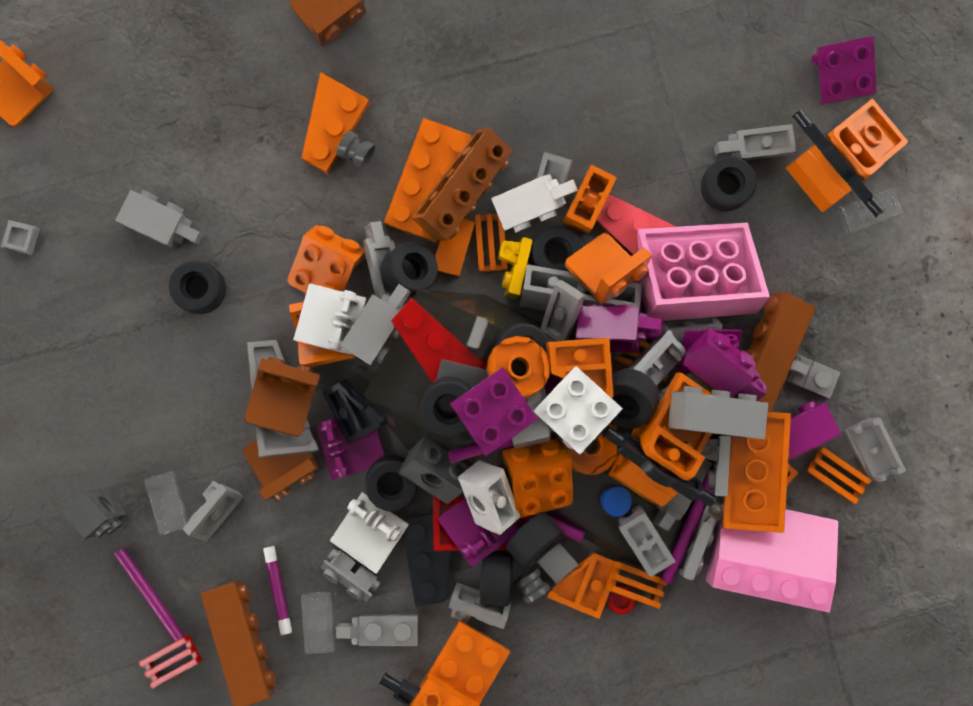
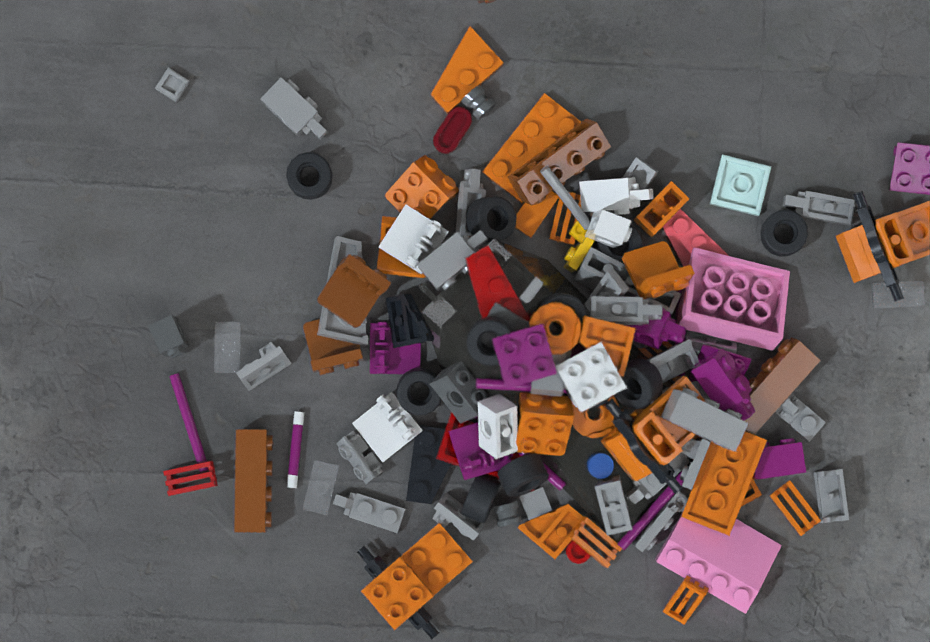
camera: 20 degrees right, 0 degrees up
(337, 189) = (452, 130): none -> dark red tile
(483, 219) = (565, 197): none -> light grey bar
(541, 236) = (608, 228): none -> white brick
(588, 321) = (624, 310): none -> light grey hinge
(663, 149) = (740, 185): none -> light aqua tile
(761, 603) = (693, 587): none -> orange tile

